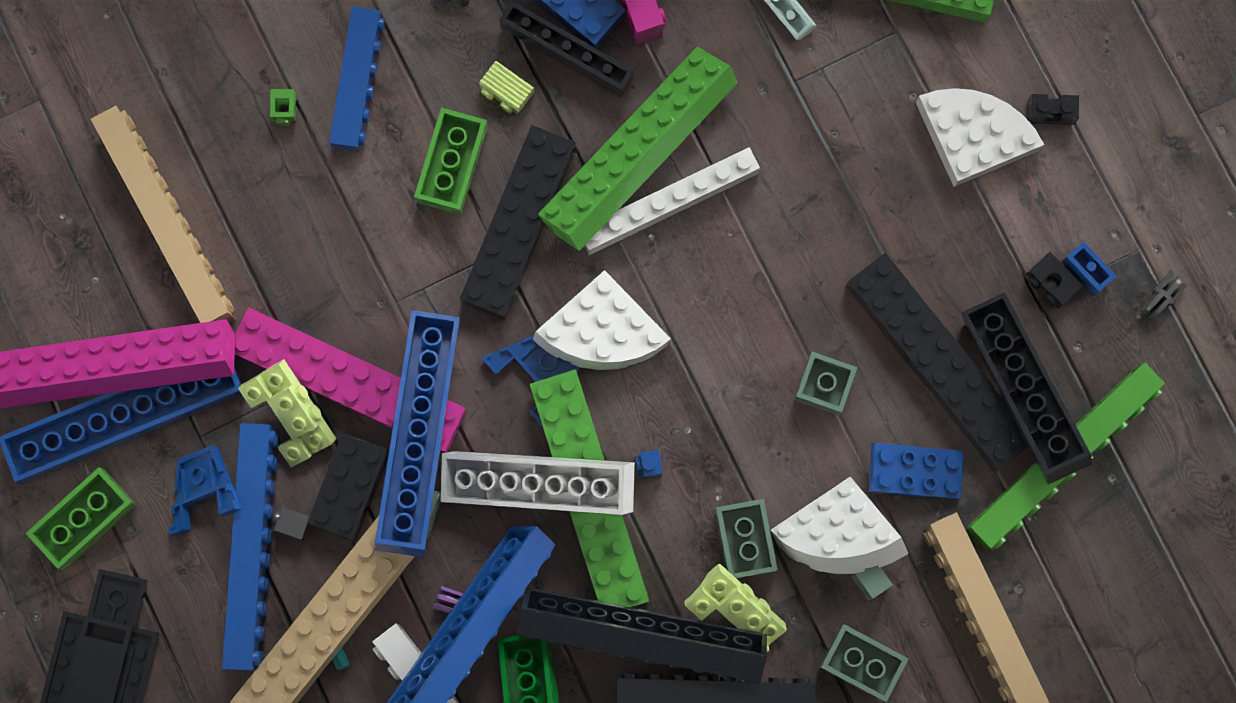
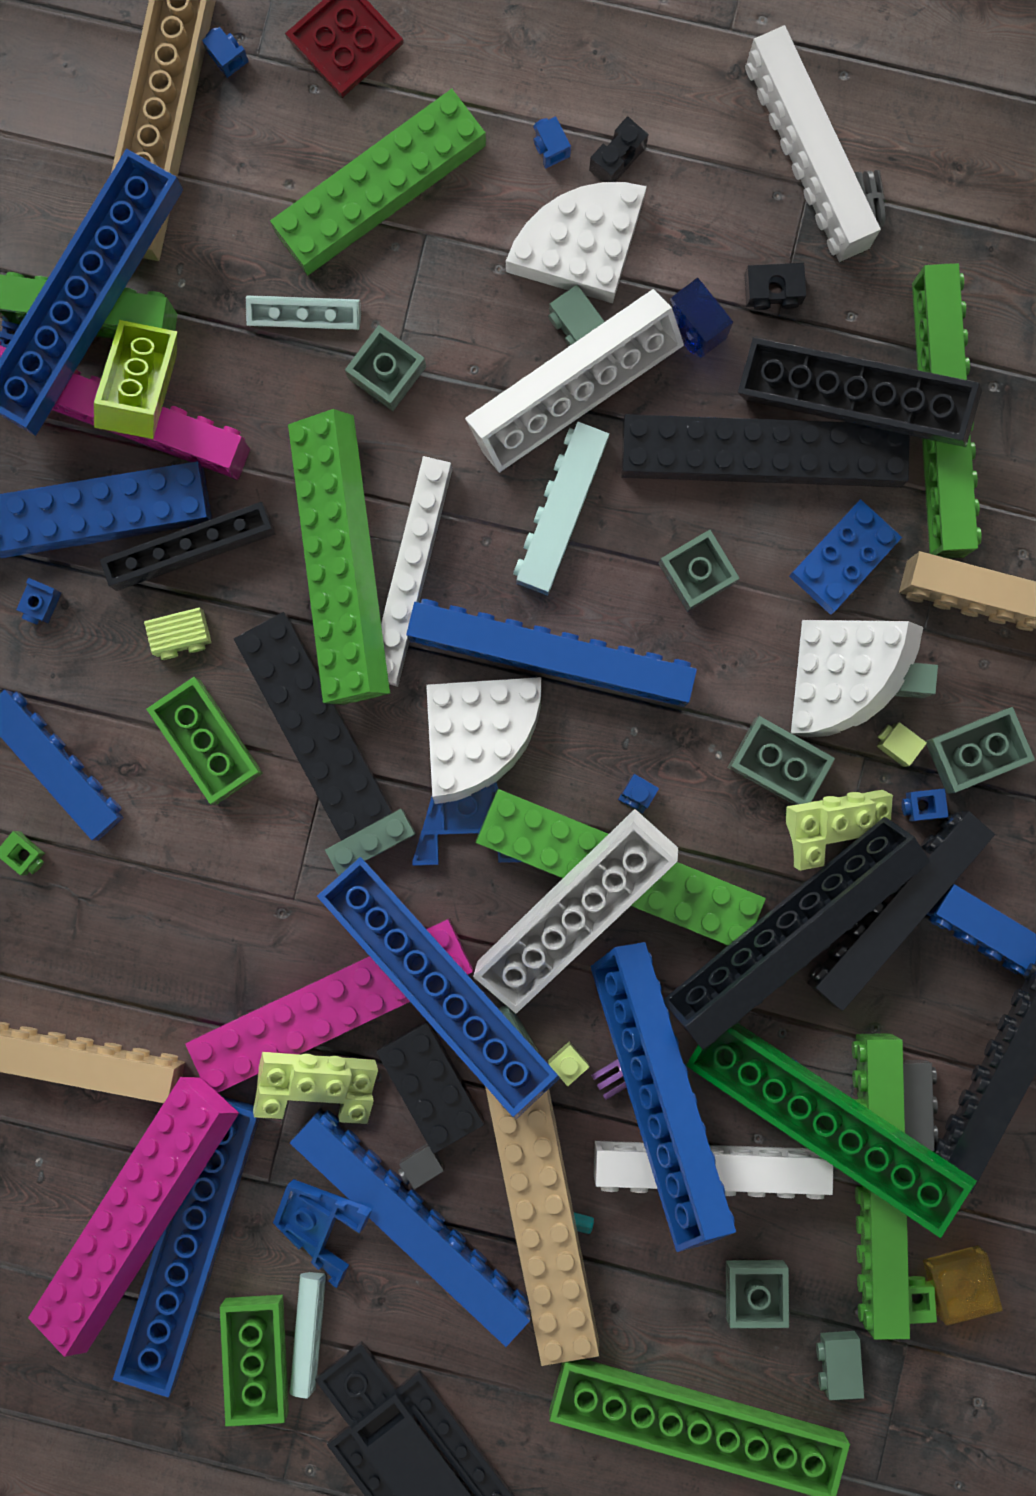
camera: 45 degrees left, 5 degrees up
(124, 540) = (307, 1334): none -> light aqua brick
(436, 564) = (568, 1063): none -> yellowish green brick
(476, 319) = (371, 841): none -> sand green brick
(691, 334) = (551, 654): none -> blue brick
(786, 77) = (385, 368): none -> sand green brick
(791, 264) = (562, 508): none -> light aqua brick
(807, 660) = (935, 805): none -> blue brick
(824, 608) = (900, 743): none -> yellowish green brick
(880, 203) = (576, 380): none -> white brick
(922, 174) = (574, 315): none -> sand green brick
(988, 248) = (700, 318): none -> clear blue brick
(1023, 61) = (551, 141): none -> blue brick
(1088, 268) = (792, 244): blue brick -> none
(1163, 227) = (811, 144): none -> white brick

